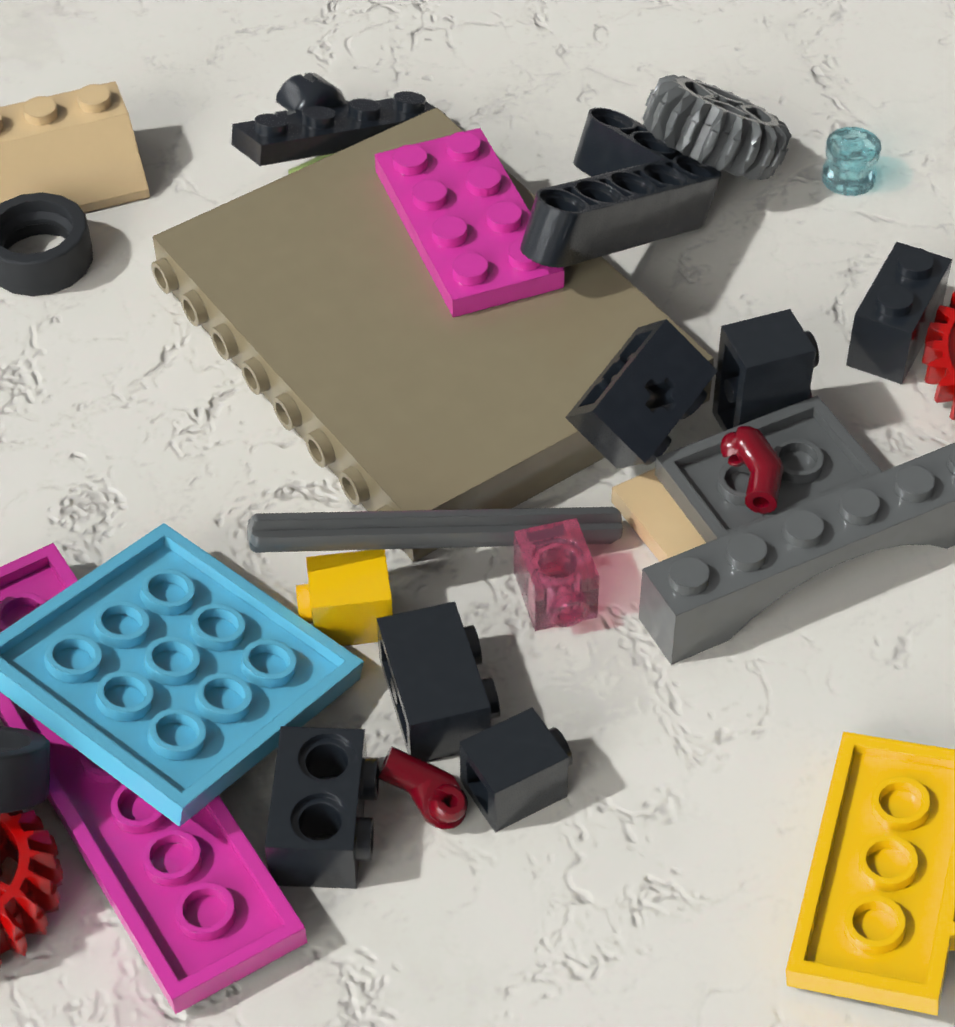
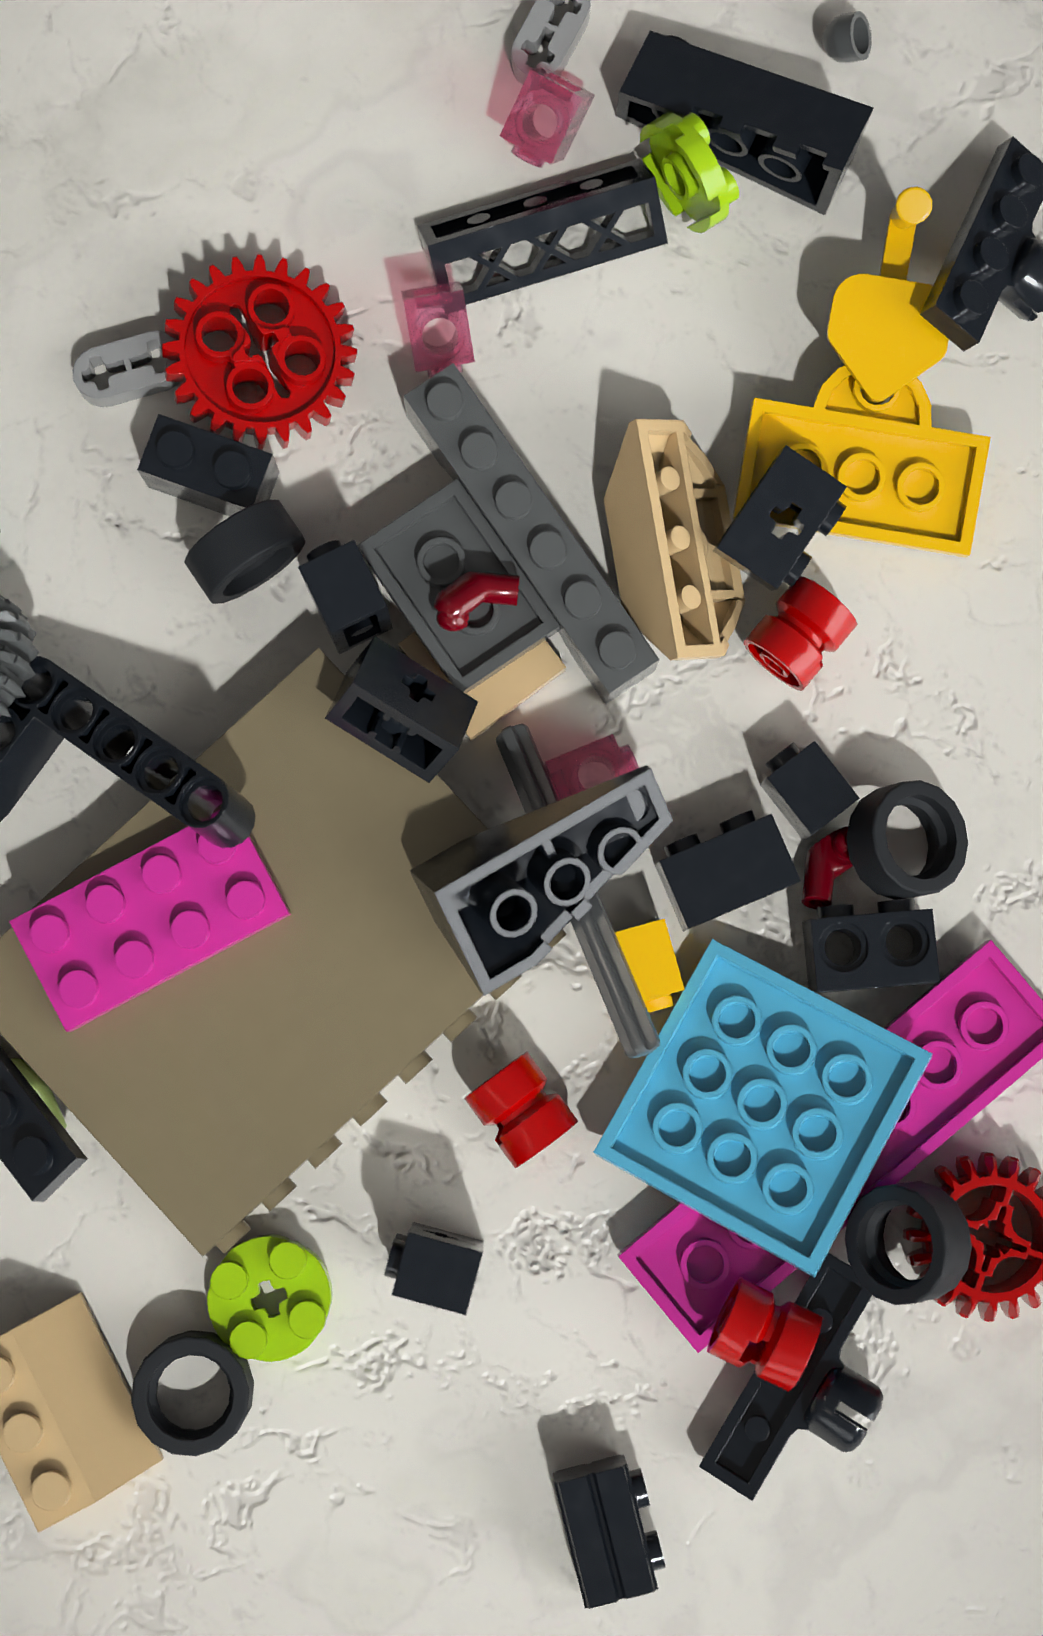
camera: 105 degrees left, 35 degrees up
(87, 389) = (434, 1267): none -> black brick
(119, 281) = (251, 1329): none -> lime plate
(222, 480) = (521, 1110): none -> red wheel
(417, 797) = (944, 834): none -> black tyre
(452, 467) = (526, 879): none -> black wedge
(708, 784) = (806, 625): none -> red wheel
(812, 670) = (663, 523): none -> tan wedge
(824, 306) = (244, 551): none -> black tyre
(834, 750) = (786, 484): none -> black brick

